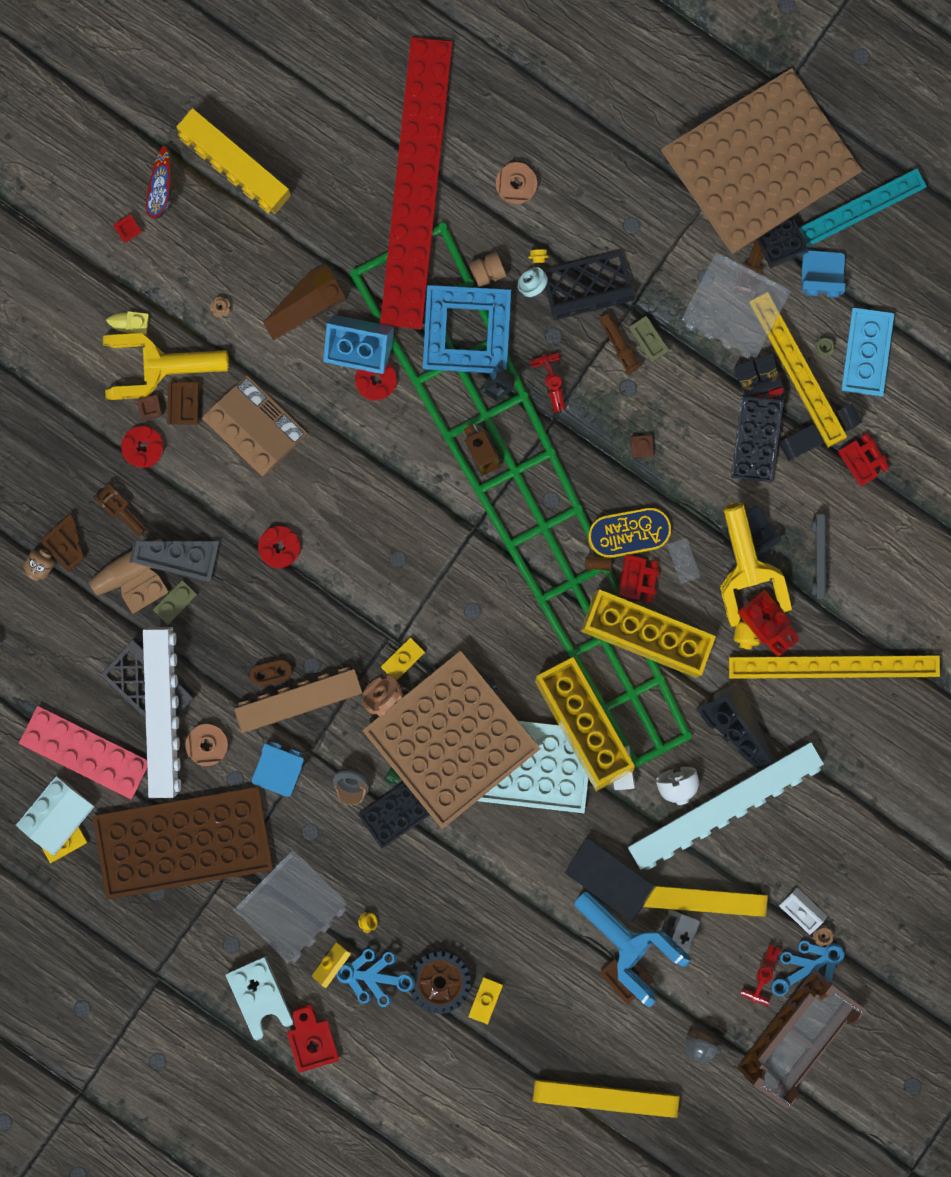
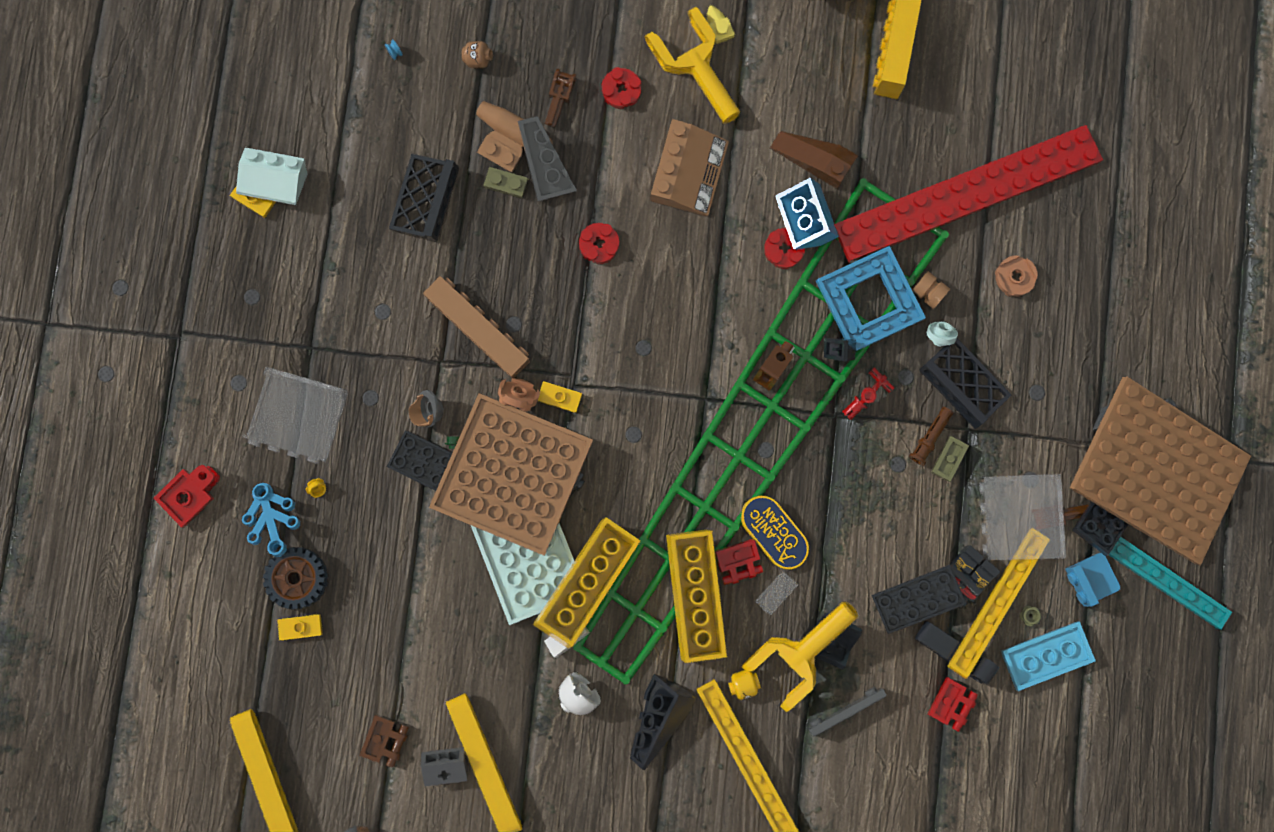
camera: 55 degrees right, 5 degrees down
(65, 544) = (506, 67): reddish brown wing -> none
(84, 752) = (339, 175): coral plate -> none
(149, 407) = (657, 76): copper plate -> none
(161, 712) = (404, 215): white brick -> none
(182, 843) = (304, 295): reddish brown plate -> none
(183, 403) = (675, 101): reddish brown plate -> none
(198, 736) = (387, 269): nougat plate -> none
(225, 307) = (769, 92): medium nougat plate -> none
(259, 1002) = (199, 432): light aqua brick -> none
(271, 674) = (489, 292): reddish brown plate -> none
(278, 769) = (409, 341): dark azure bracket -> none
(331, 965) = (262, 476): yellow plate -> none
(538, 256) = (966, 327): yellow plate -> none
(597, 563) = (733, 518): reddish brown pin -> none
(610, 879) = (461, 680): black tile -> none
(631, 945) = (411, 731): dark azure piece -> none
(642, 446) = (854, 503): copper plate -> none
(726, 805) = (582, 747): light aqua brick -> none
(772, 629) = (763, 705): red plate -> none

